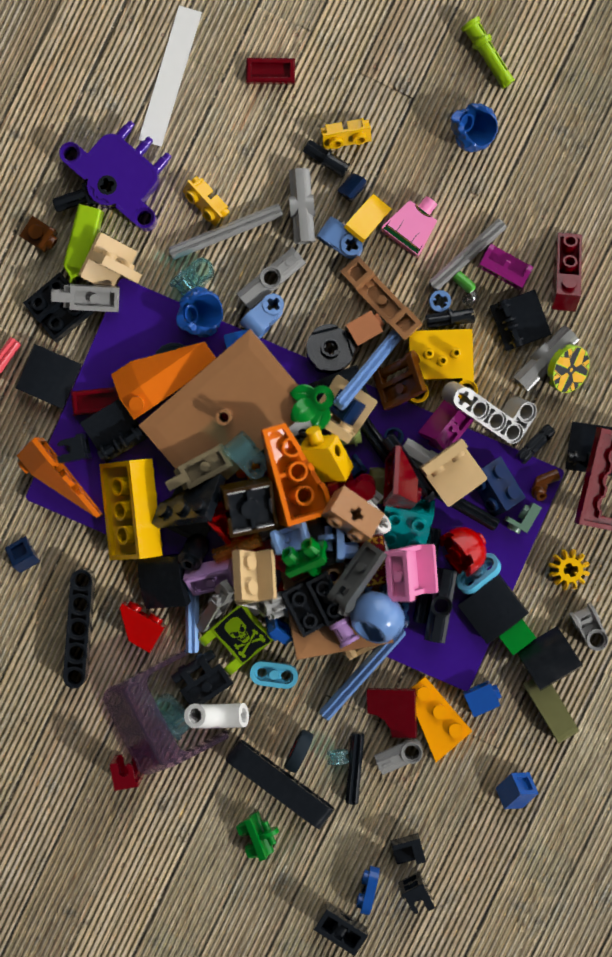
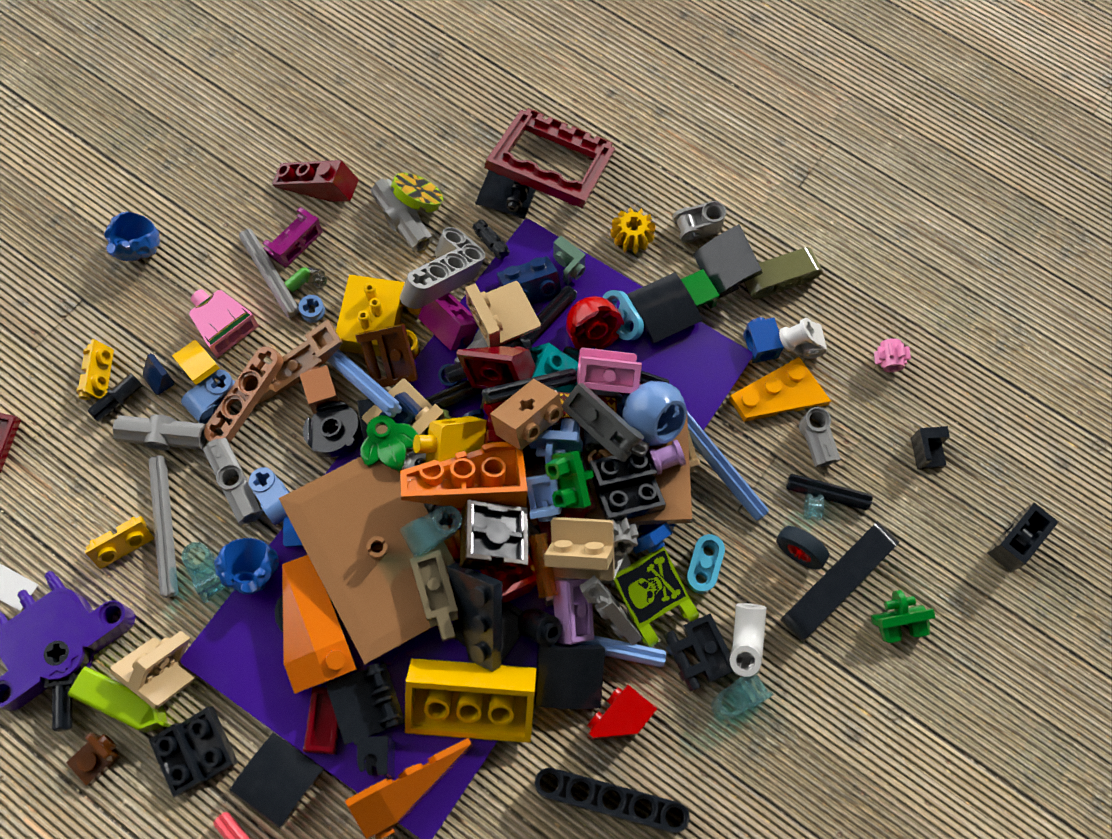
camera: 85 degrees left, 20 degrees down
(88, 297) = (188, 704): light grey hinge -> none
(124, 775) = (814, 769): dark red hinge -> none
(144, 725) = (747, 735): clear purple windscreen -> none
(343, 270) = (247, 398): none -> nougat beam
(370, 880) = (970, 496): blue plate -> none
(390, 518) = (551, 380): none -> black axle
(396, 708) = (764, 431): dark red tile -> none
(415, 889) = (980, 441): black hinge -> none
(438, 620) = (668, 365): black piece -> none
(449, 318) = (333, 298): black axle -> none
(482, 43) = (46, 218): lime pin -> none
(486, 733) = (804, 339): none -> white piece
(487, 811) = (892, 355): none -> bright pink gear
(516, 790) = (870, 322): blue panel -> none
(520, 320) = (354, 234): black hinge -> none
(542, 482) = (534, 239): reddish brown arm -> none

